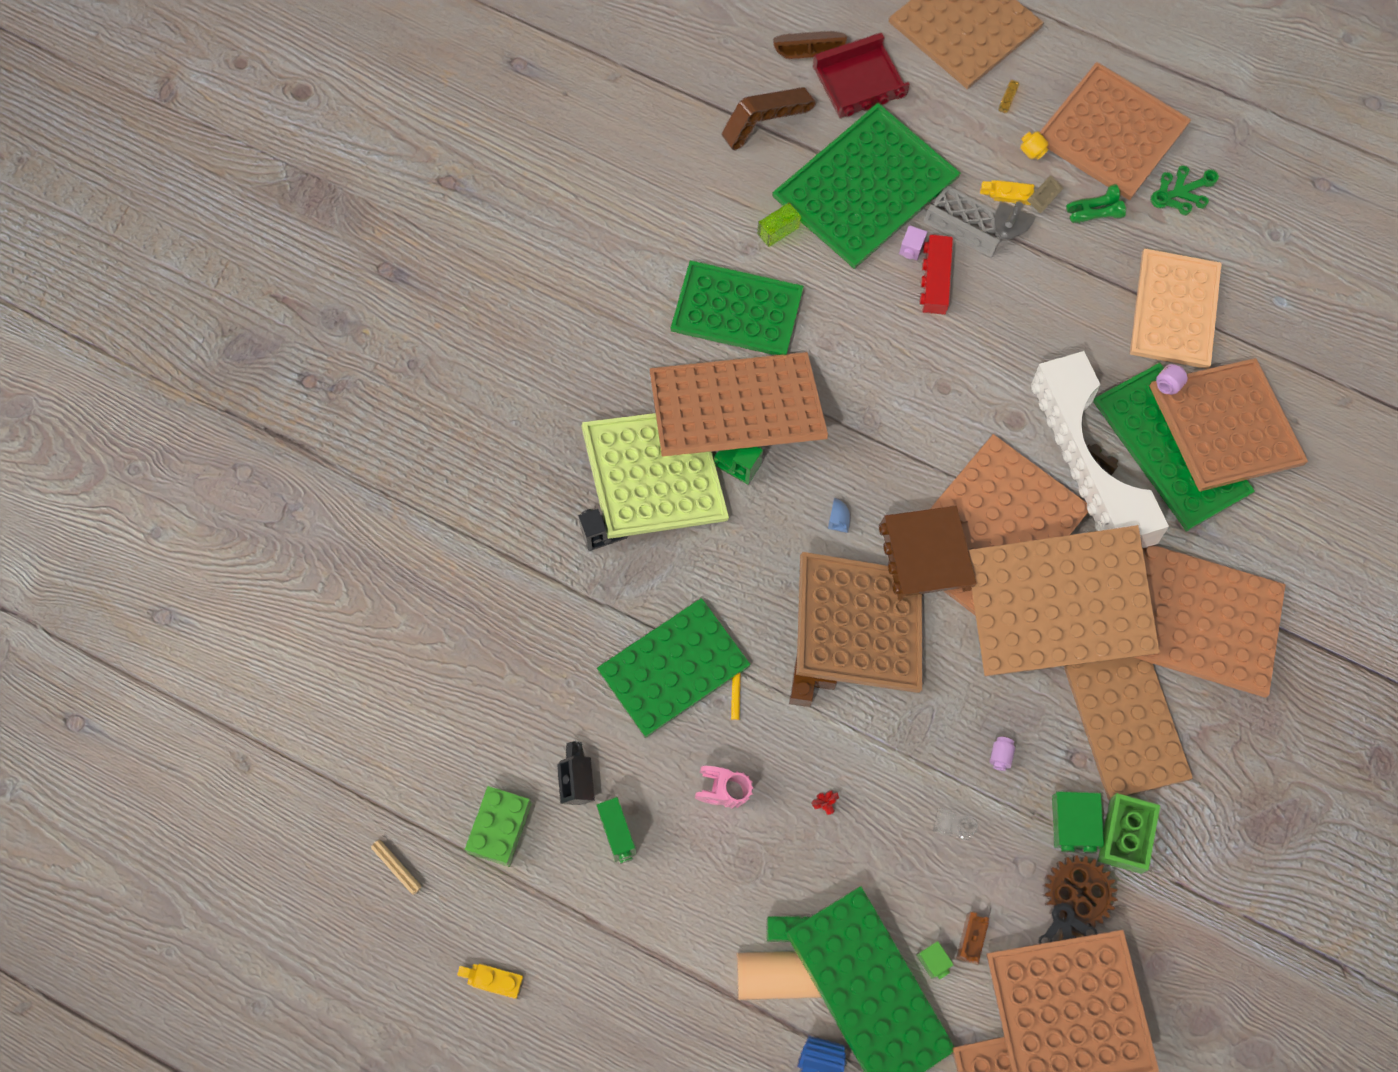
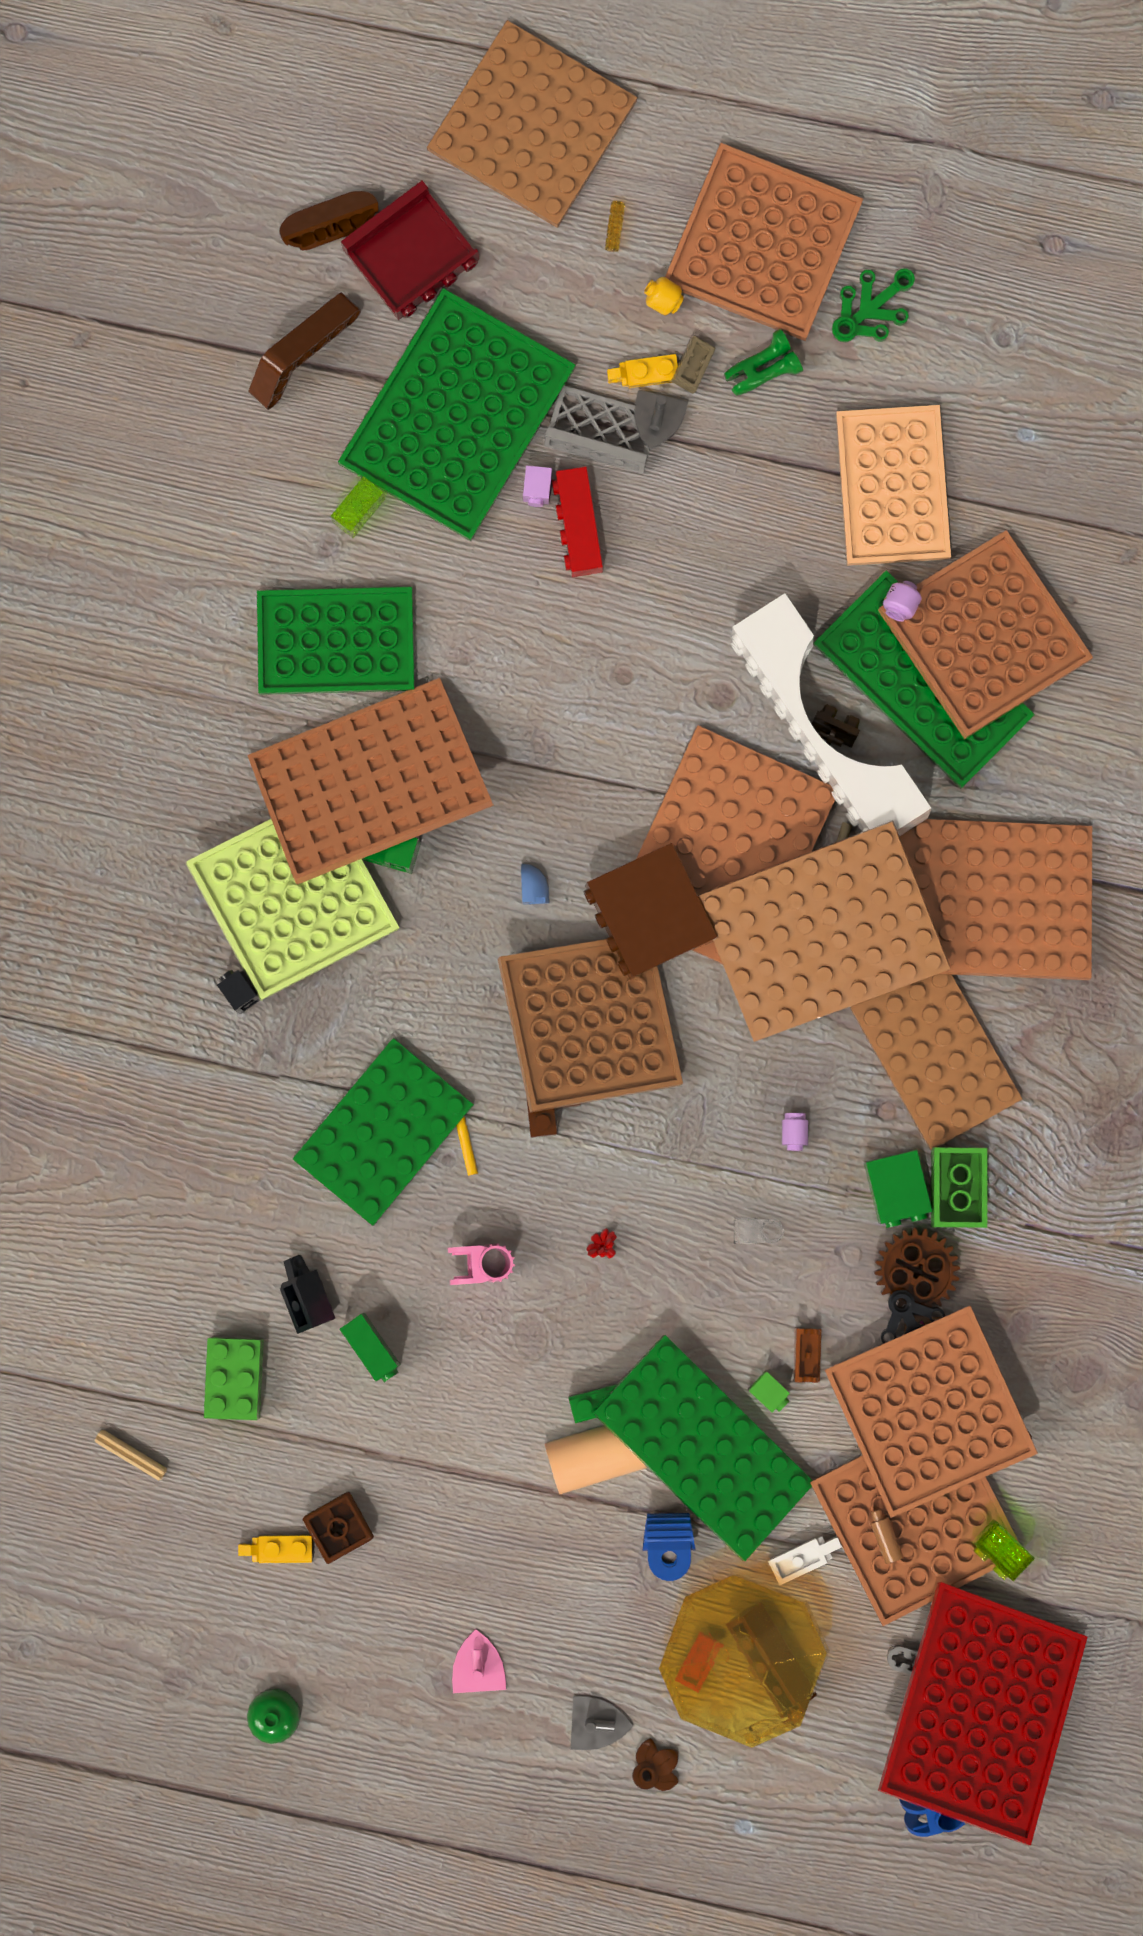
camera: 10 degrees left, 15 degrees up
(534, 965) = (330, 1543): none -> reddish brown brick

